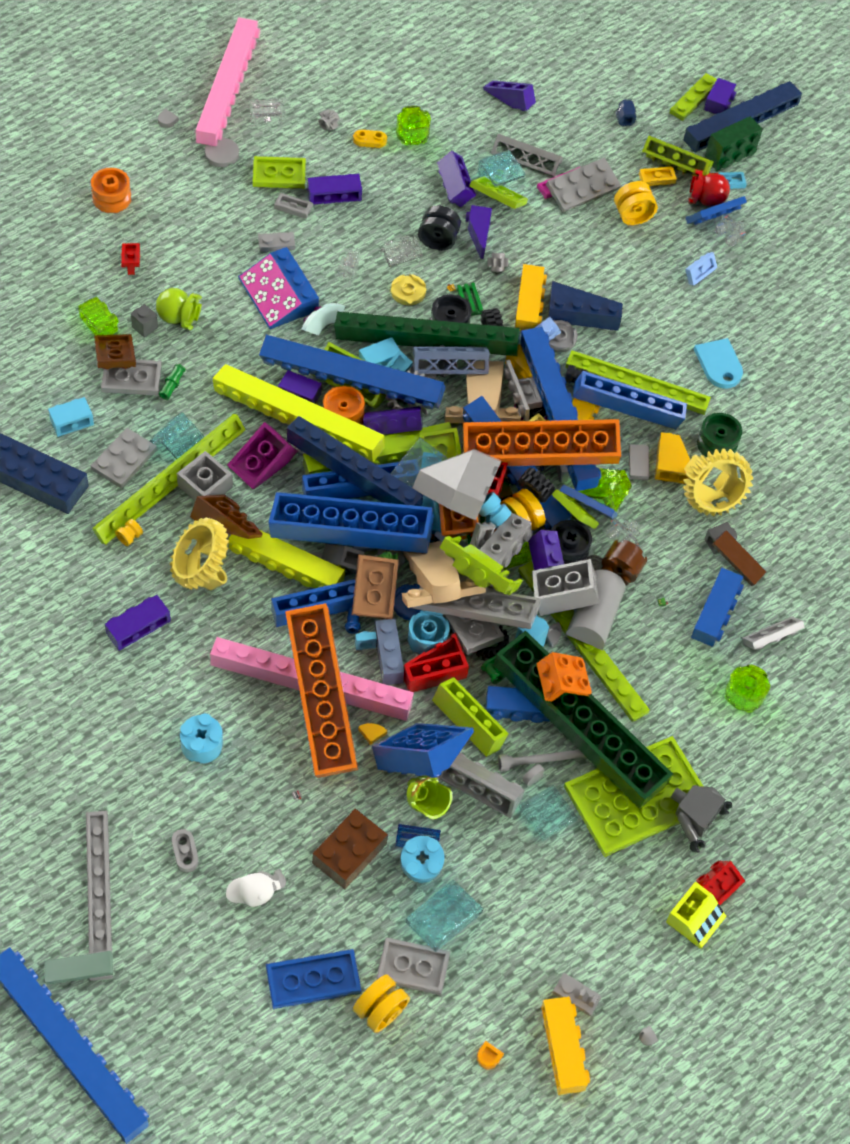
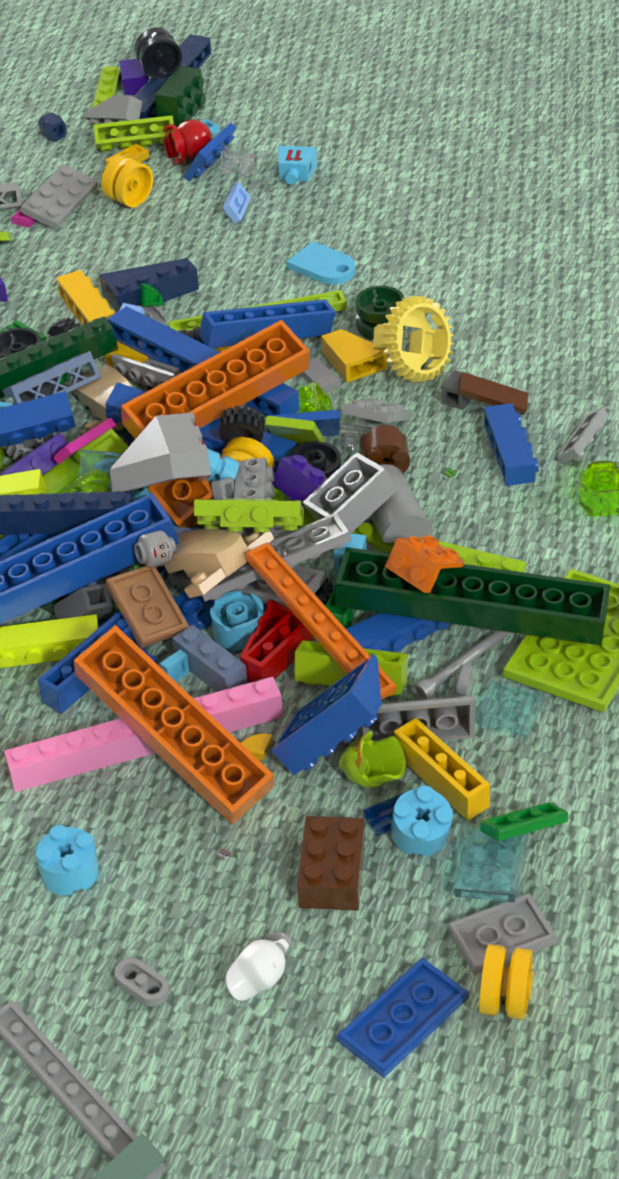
camera: 25 degrees left, 15 degrees down
(402, 467) = (88, 484): none -> clear neon green plate
(403, 552) = (154, 549): none -> light grey head
(432, 427) = (71, 449): none -> dark pink tile
(465, 830) = (443, 769): none -> yellow brick
(466, 671) = (312, 612): none -> orange tile
(484, 902) = (523, 821): none -> green tile
(498, 262) = (27, 291): light grey gear -> none
(574, 320) = (149, 296): none -> green tile
(645, 523) = (374, 410): none -> light grey plate
(678, 129) = (115, 109): none -> light grey slope
(743, 93) = (157, 52): none -> black wheel
(772, 257) = (296, 163): none -> medium azure torso

